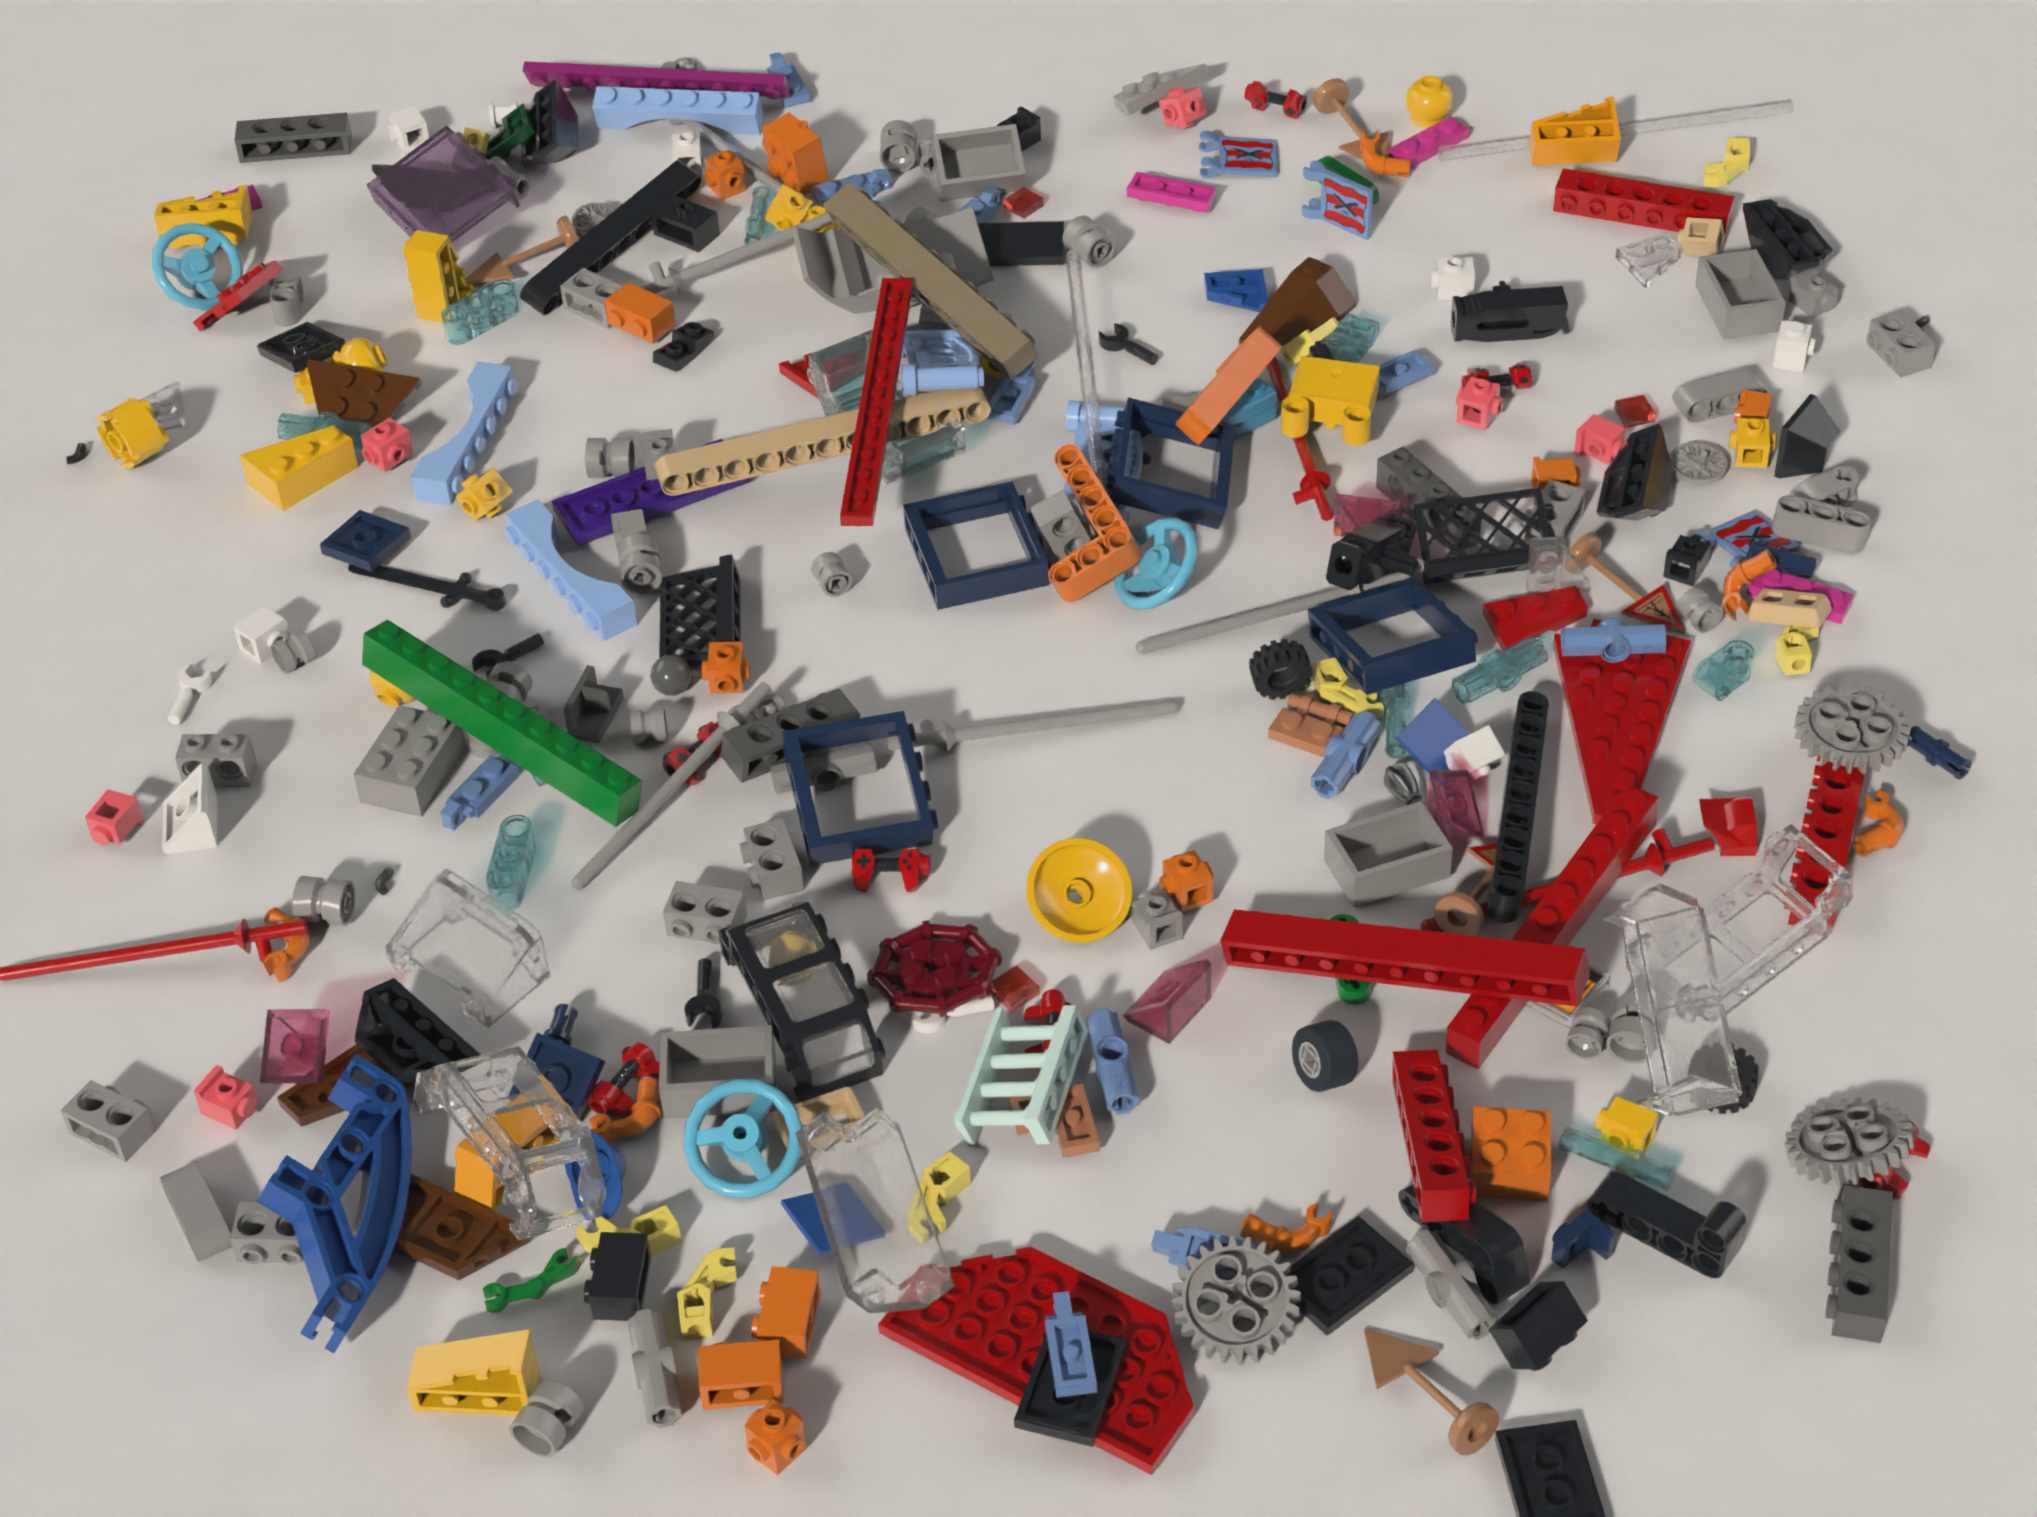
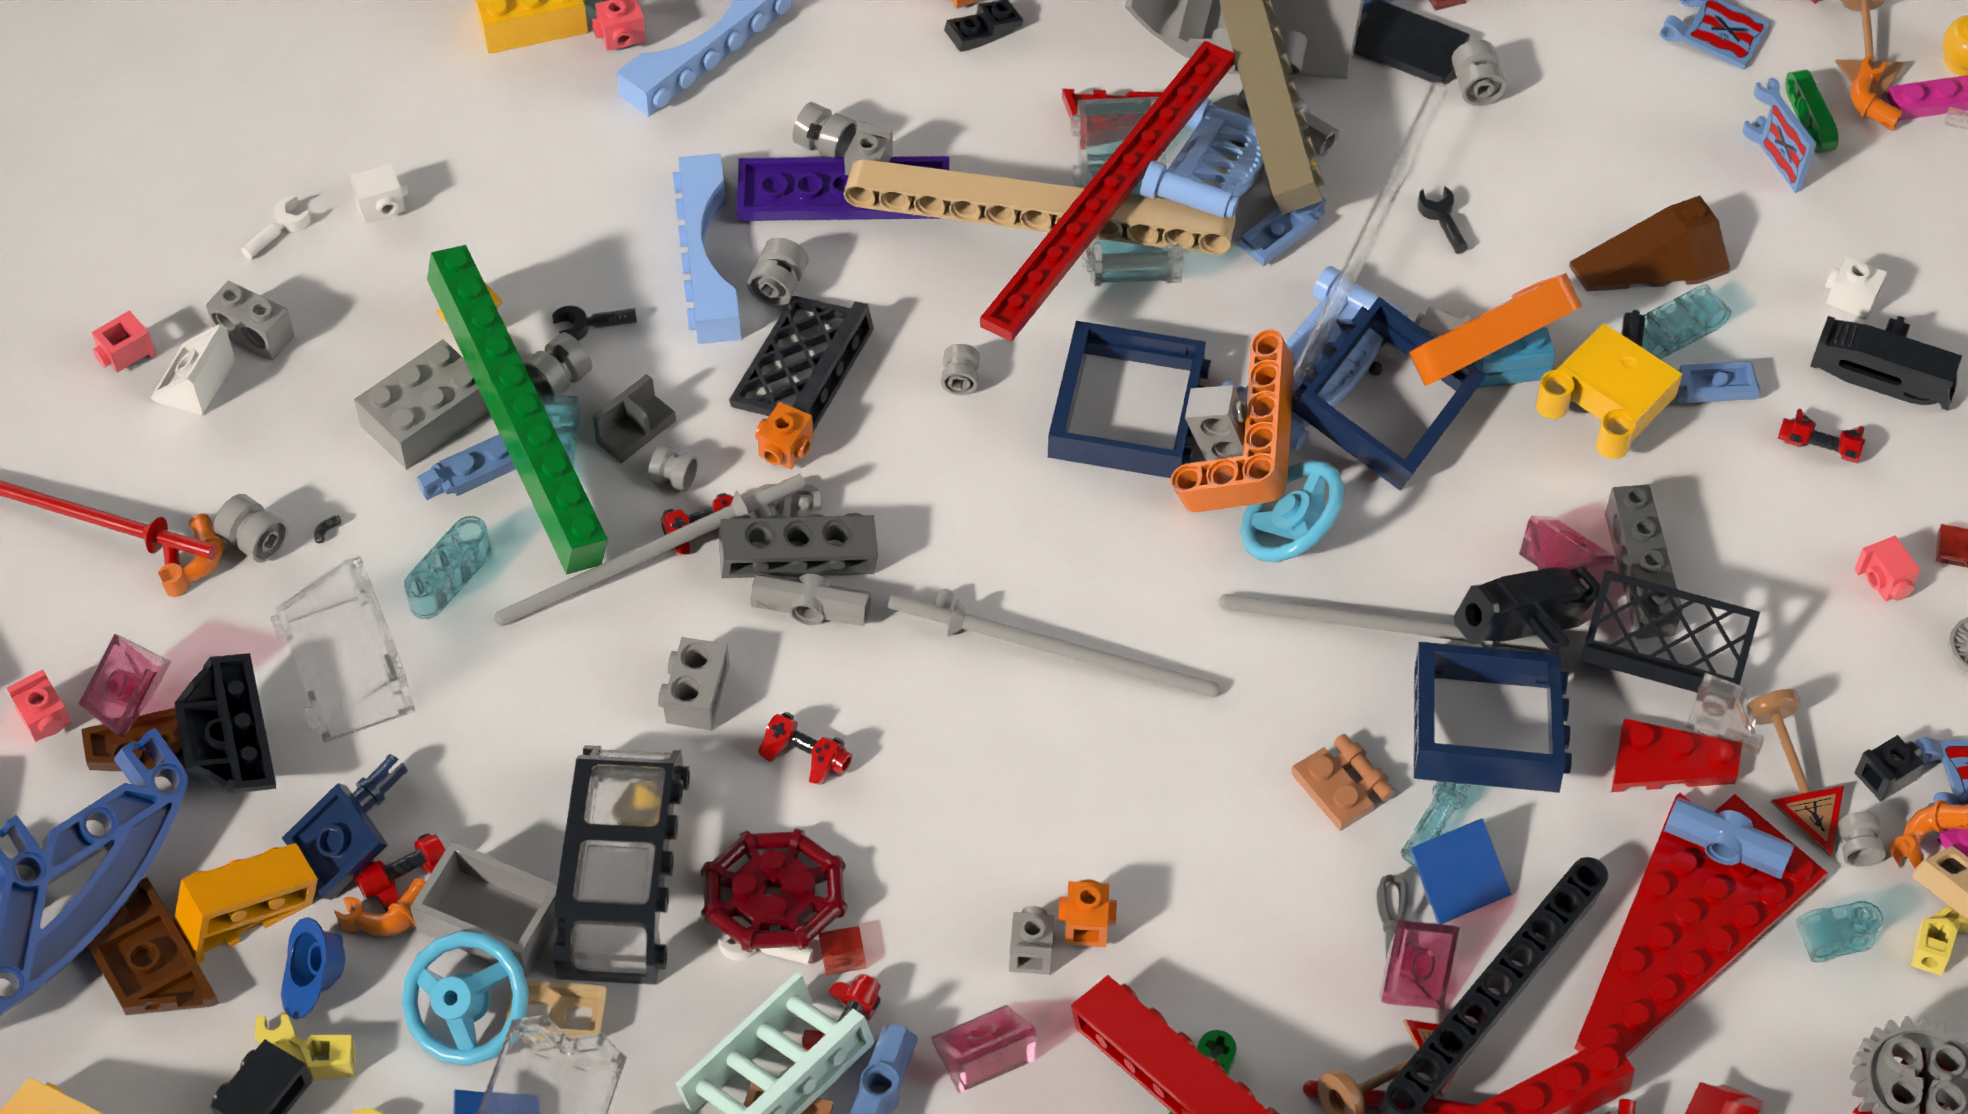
camera: 25 degrees right, 10 degrees up
(293, 651) = (396, 225): light grey wheel -> none
(365, 540) = (537, 126): dark blue plate -> none
(454, 591) = (587, 218): black sword -> none
(476, 1118) = (210, 858): clear windscreen -> none
(483, 494) = (687, 122): yellow brick -> none
(534, 1288) = (189, 1060): green piece -> none
(627, 523) = (794, 224): light grey brick -> none
(671, 675) = (730, 418): dark grey piece -> none
(702, 910) = (599, 710): light grey brick -> none
(704, 1001) = (534, 815): black piece -> none
(878, 839) = (861, 722): dark blue window -> none
(1094, 875) = (935, 881): yellow dish -> none
(1171, 192) = (1611, 44): dark pink plate -> none
(1237, 288) = (1605, 198): blue wing -> none
(1280, 656) = (1344, 702): black tyre -> none
(1300, 345) = (1619, 303): light yellow piece -> none
(1314, 482) = (1534, 481): red piece -> none
(1332, 686) = (1399, 727): light yellow piece -> none
(1345, 754) = (1353, 837): medium blue piece -> none
(1387, 853) = (1314, 985): light grey piece -> none
(1475, 753) = (1487, 906): white brick -> none
(1478, 403) = (1777, 461): coral brick -> none
(1499, 670) = (1587, 810): clear light blue piece -> none
(1557, 470) = (1804, 596): orange brick -> none
(1563, 510) = (1777, 647): light grey brick -> none
(1637, 478) = (1897, 639): black wedge -> none

